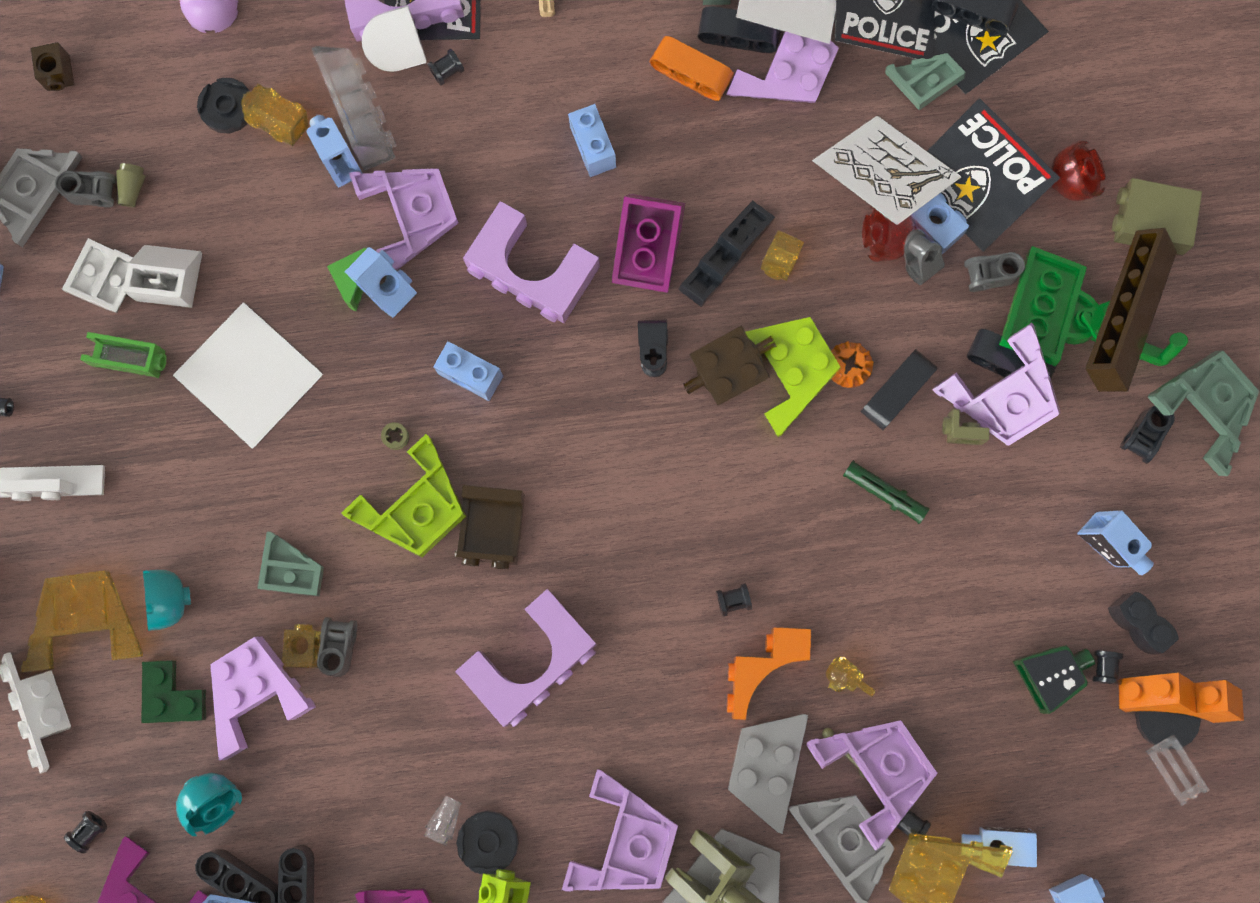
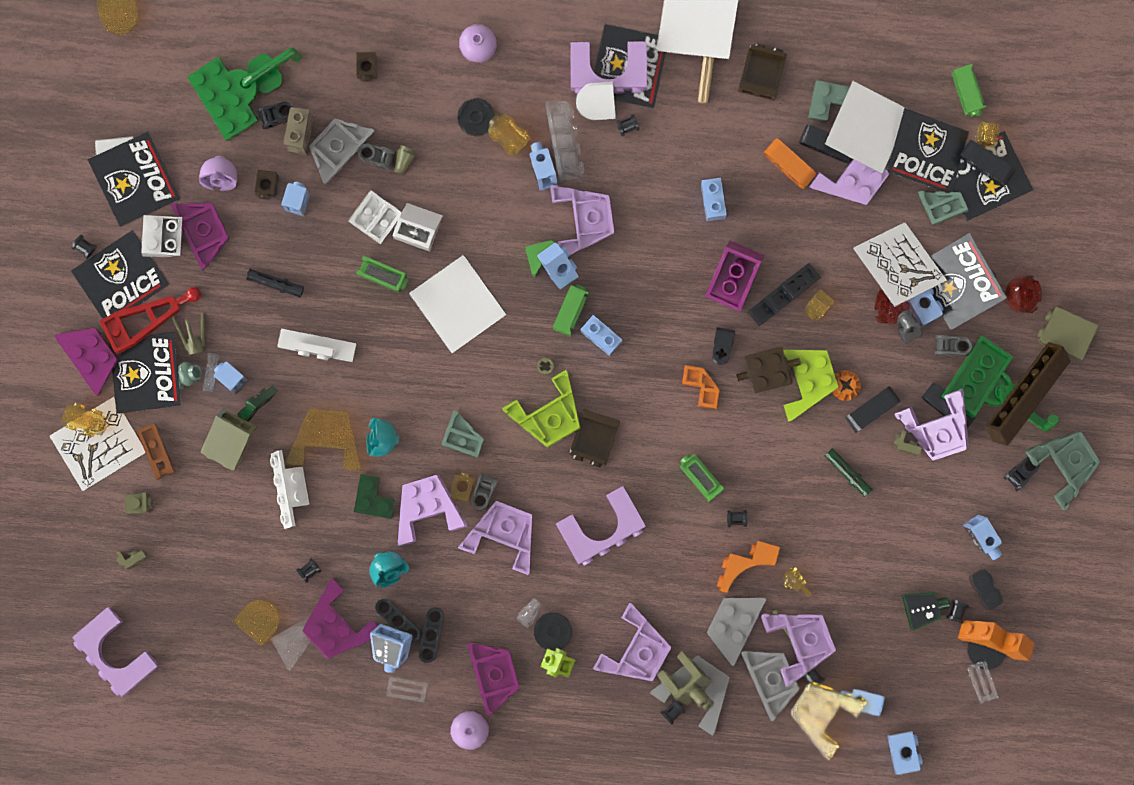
camera: 10 degrees right, 5 degrees up
(382, 693) = (507, 527): none -> lavender wing
(415, 344) = (570, 309): none -> bright green window
(554, 295) = (665, 298): lavender arch -> none
(629, 402) = (699, 378): none -> orange tile
(664, 548) = (700, 477): none -> bright green window

